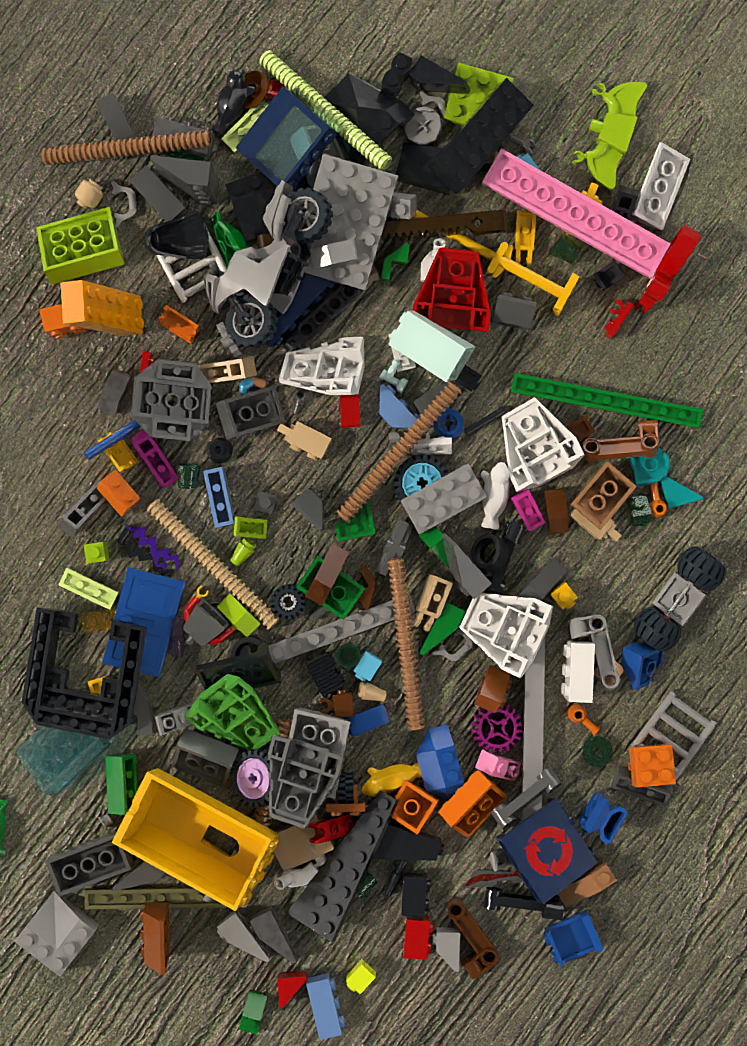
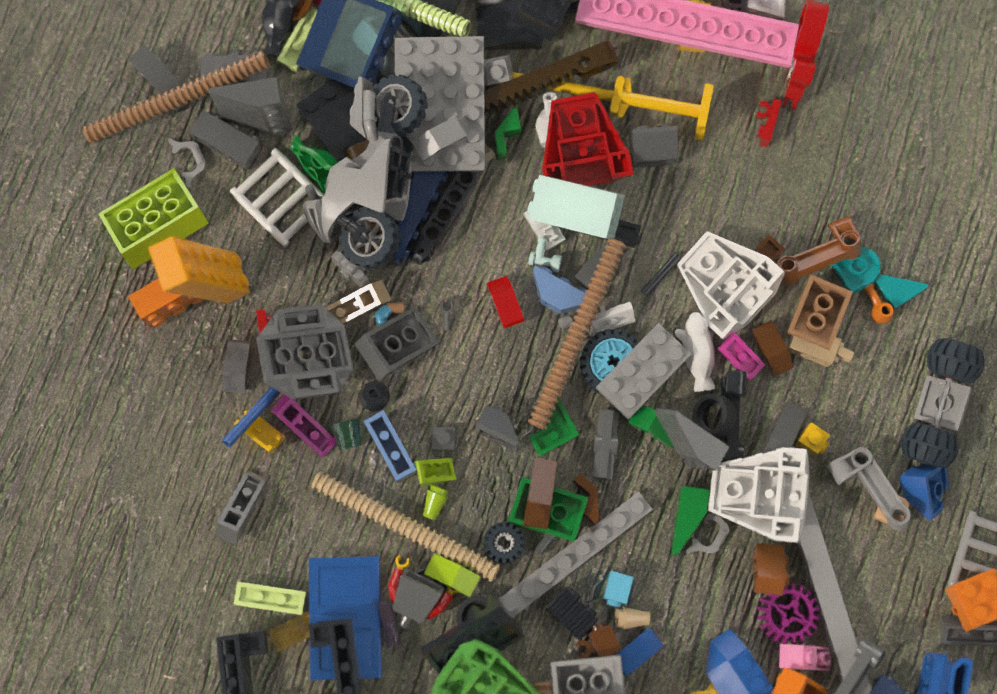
camera: 15 degrees left, 10 degrees down
(89, 194) = (147, 160): tan head -> none
(96, 552) = (267, 553): lime brick -> none
(118, 493) = (273, 477): orange brick -> none
(140, 532) = (310, 515): piece -> none
(179, 237) = (261, 176): black hair -> none
(179, 324) = (288, 270): orange hinge -> none
(306, 439) = (468, 353): tan hinge -> none
(326, 369) = (469, 268): white wedge -> none
(348, 655) = (592, 581): clear green piece -> none
(406, 644) = (654, 549): medium nougat piece -> none
(432, 600) = (667, 490): tan hinge -> none
(455, 429) = (625, 280): blue gear -> none
(524, 235) = (638, 64): yellow hinge -> none
(566, 249) = (687, 65): clear green piece -> none
(578, 671) = (859, 518): white brick -> none
(583, 719) = (882, 574): orange bar -> none
(606, 400) = (786, 212): green plate -> none
(606, 751) = (921, 604): clear green gear -> none
(609, 275) = (743, 79): black bracket -> none
(640, 510) = (864, 319): clear green bracket -> none

